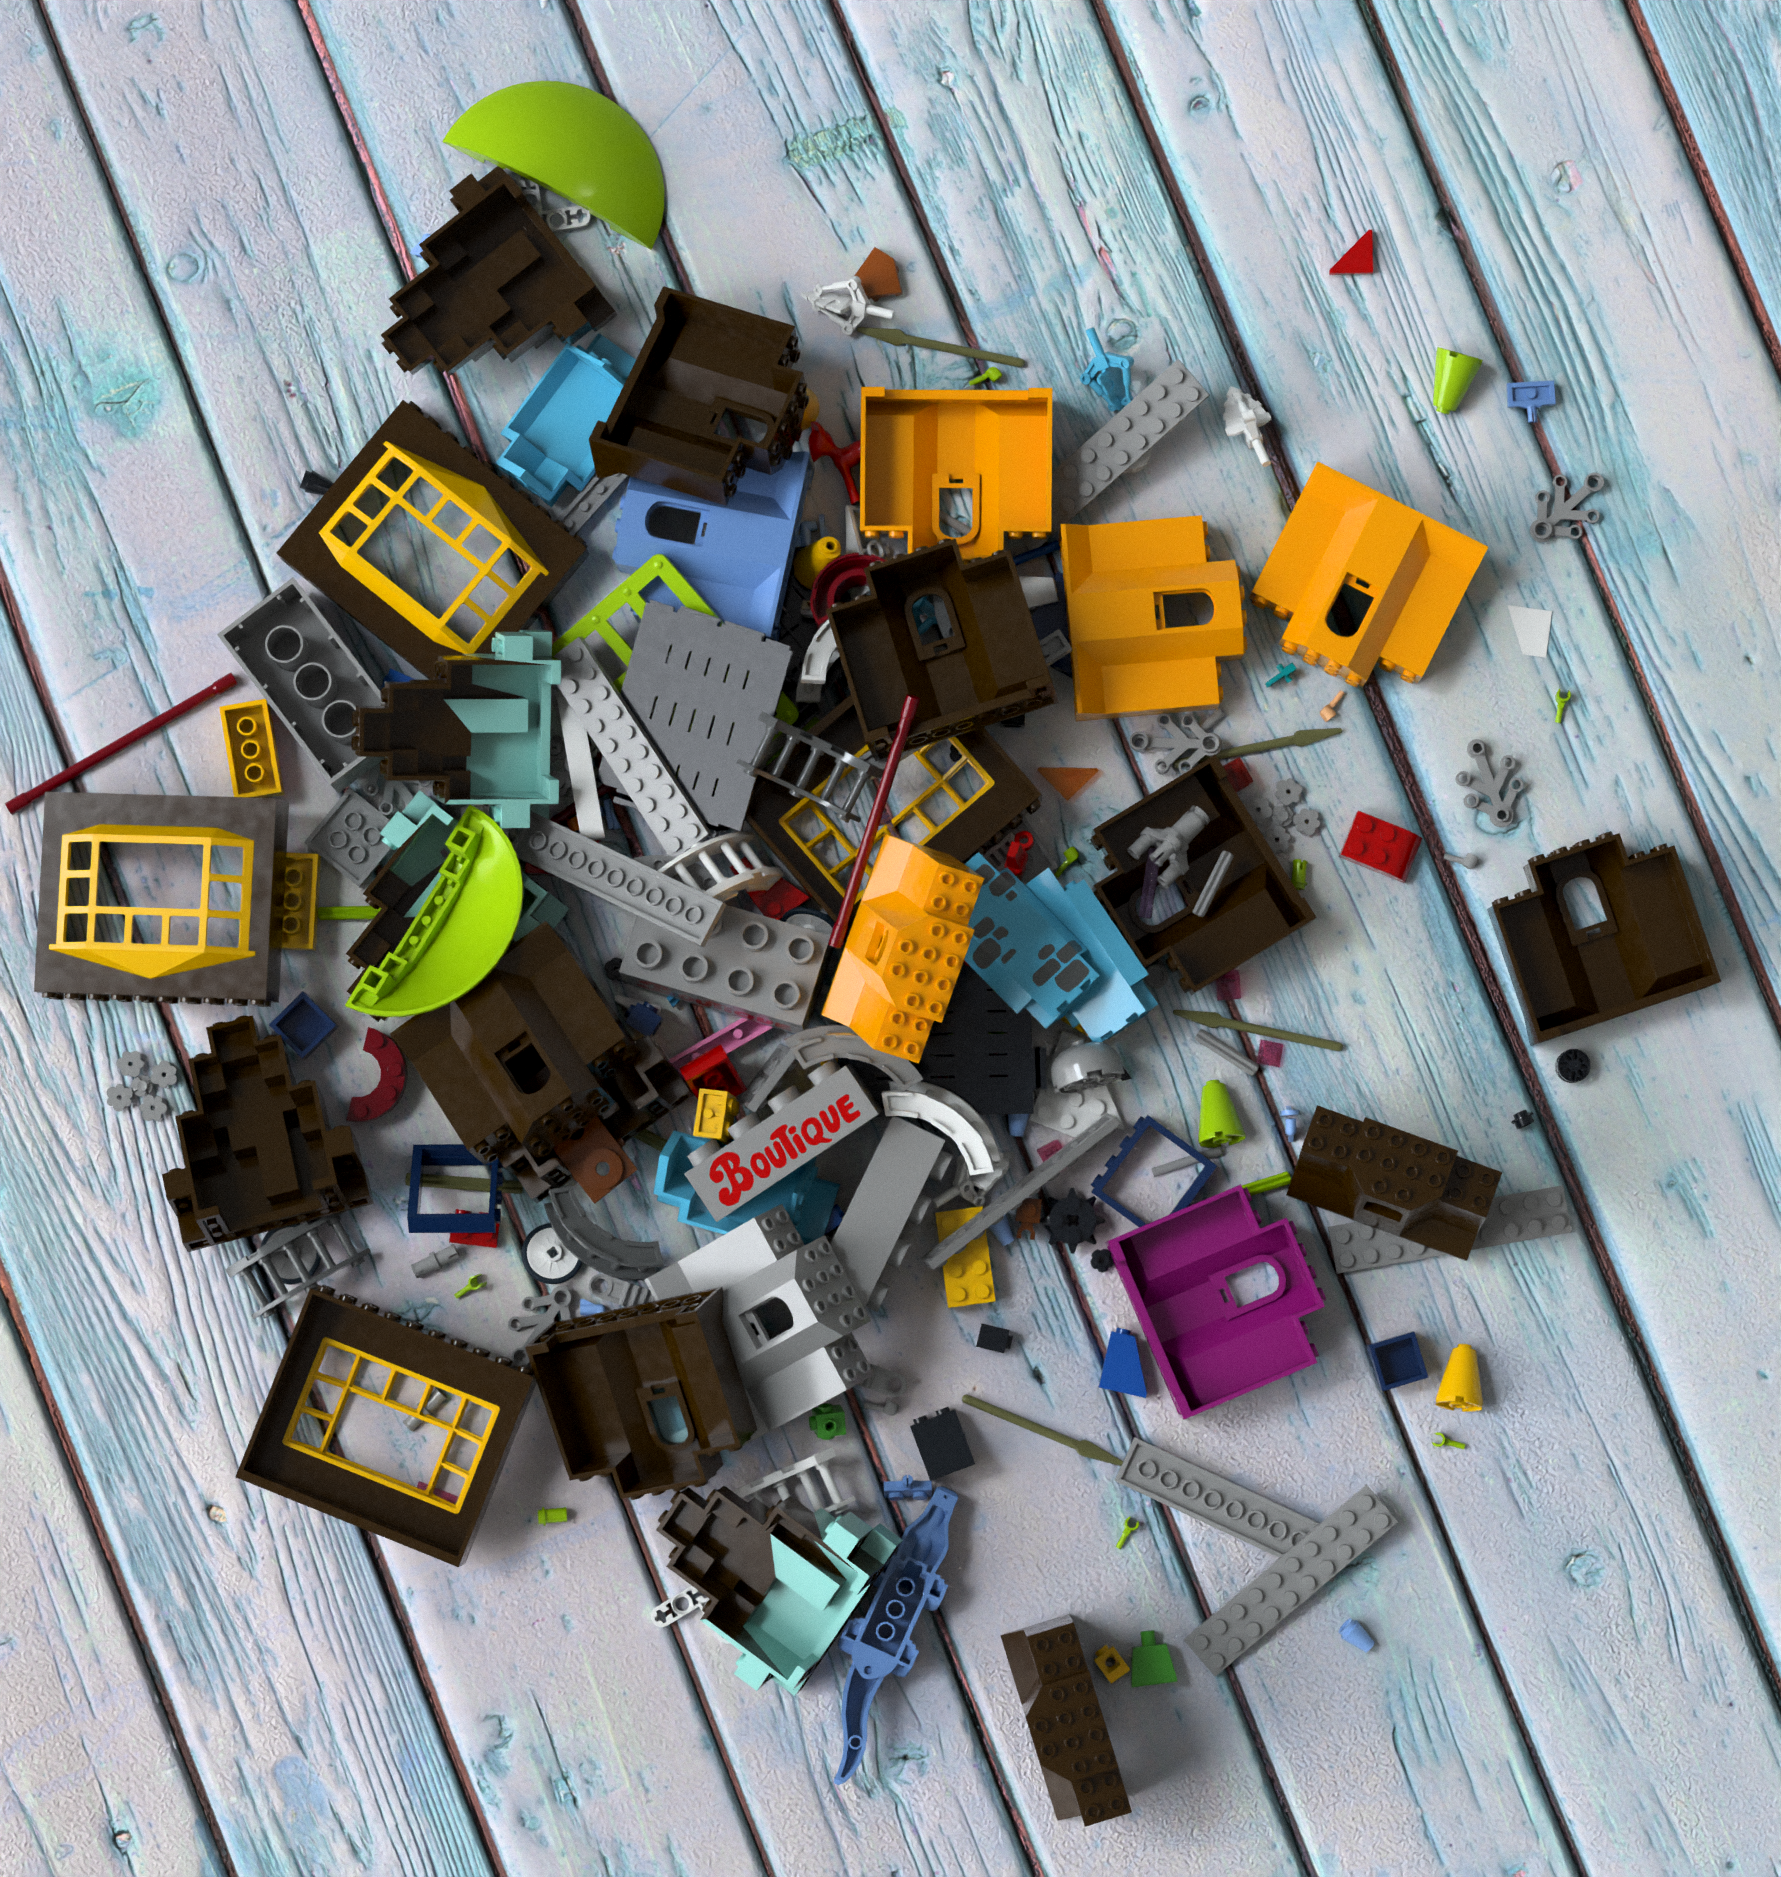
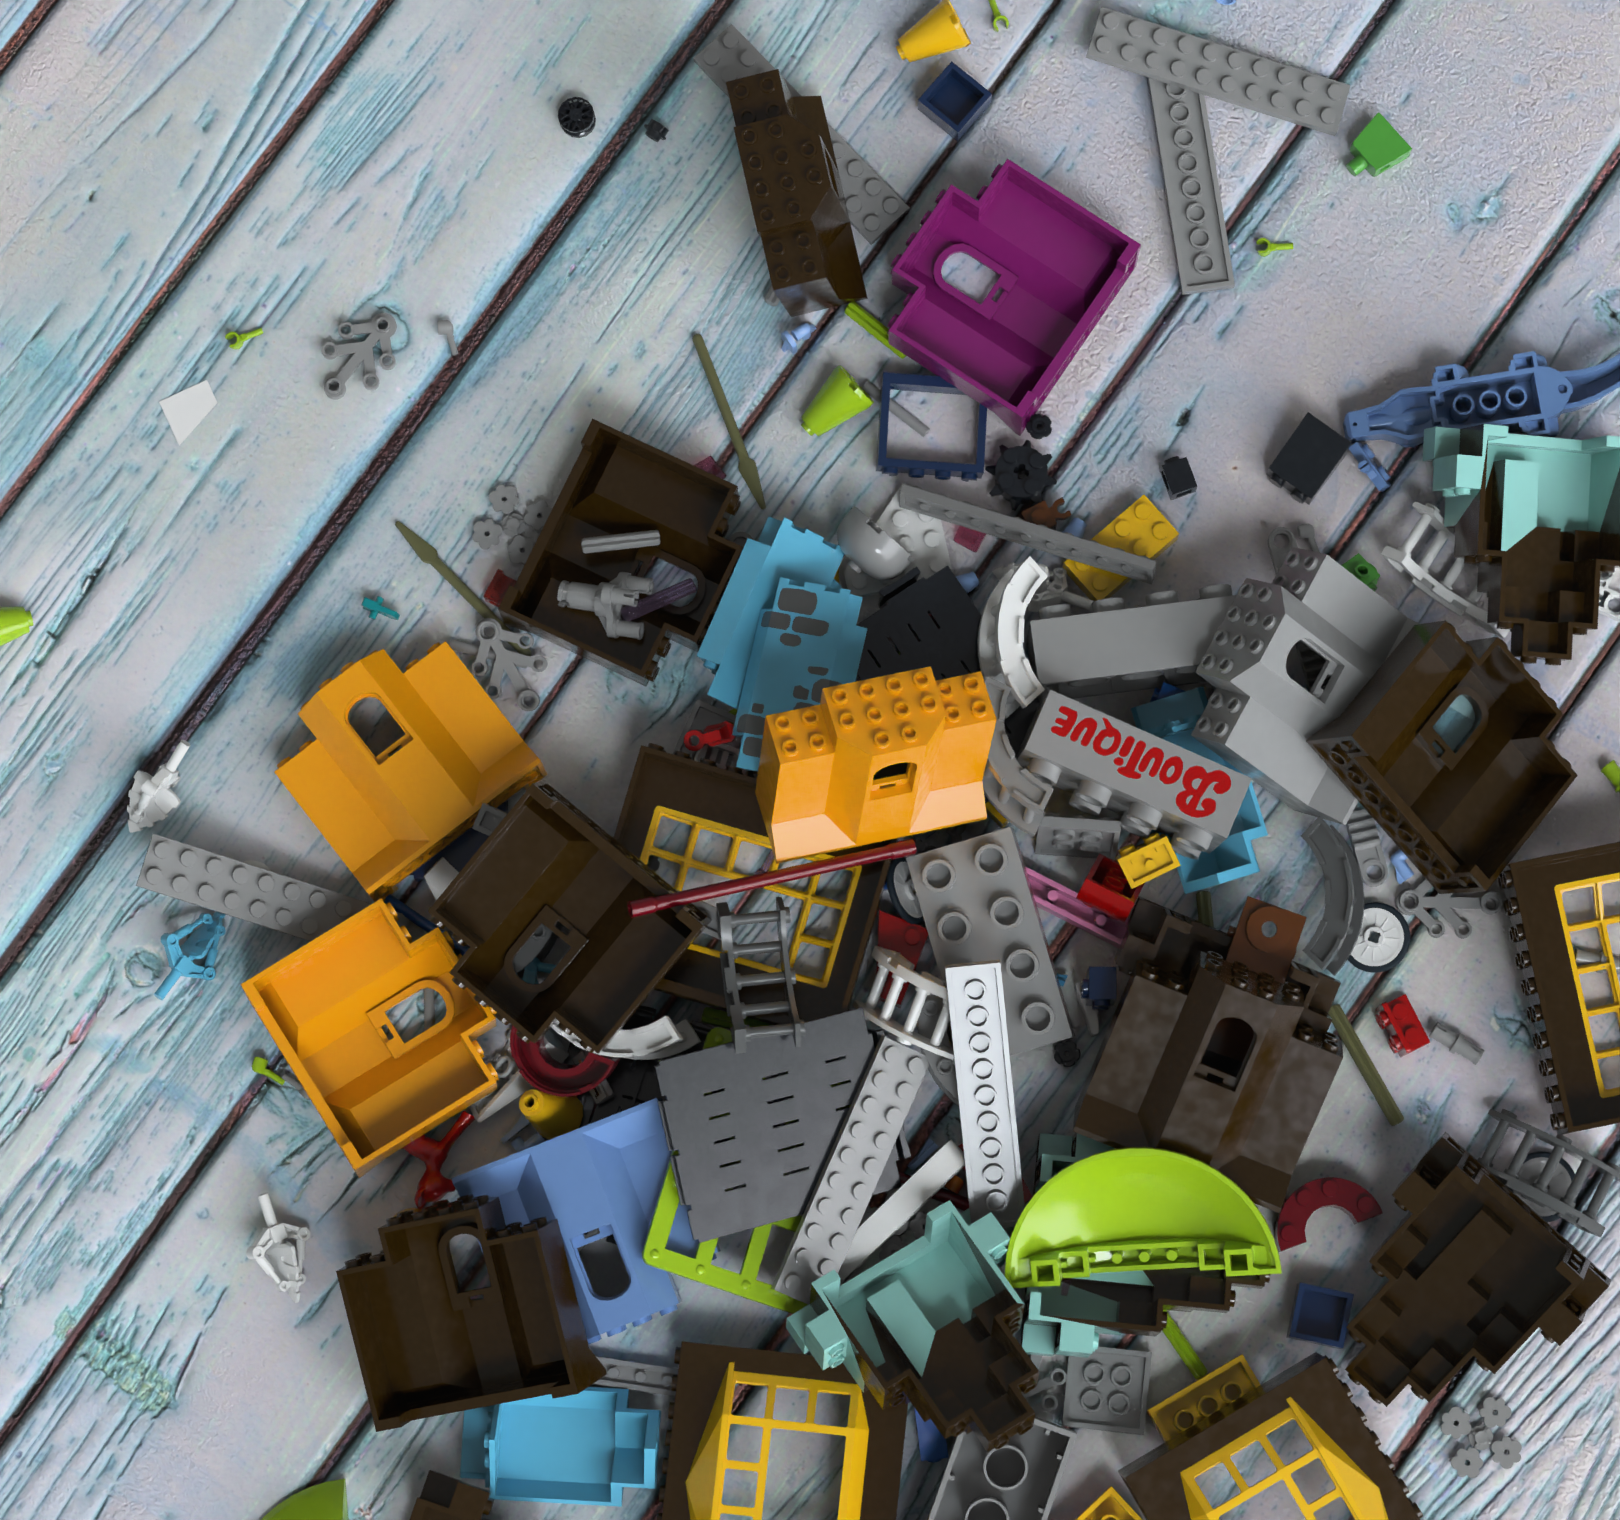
camera: 120 degrees left, 5 degrees down
(450, 1223) = (1347, 1092): dark blue window -> none
(472, 1284) = (1454, 993): lime hand -> none
(879, 276) = (231, 1237): dark orange slope -> none
(897, 338) = (280, 1181): olive piece -> none
(1066, 1721) = (1484, 177): dark brown panel -> none
(1067, 780) = (608, 745): clear orange tile -> none
(1071, 855) = (677, 696): lime hand -> none
(1082, 1447) = (1222, 333): olive piece -> none
(1111, 1672) = (1406, 175): yellow brick -> none
(1122, 1365) = (1124, 345): blue slope -> none
(1226, 1052) = (769, 435): light grey axle -> none
(1269, 1053) = (745, 397): clear pink slope -> none
(1299, 874) = (557, 474): lime pin -> none
(1327, 712) = (388, 545): light nougat hand -> none
(1355, 532) = (208, 628): light orange panel -> none
(1380, 846) = (484, 417): red brick -> none
(1563, 510) = (55, 449): light grey plant -> none
(1642, 956) = (438, 115): dark brown panel -> none

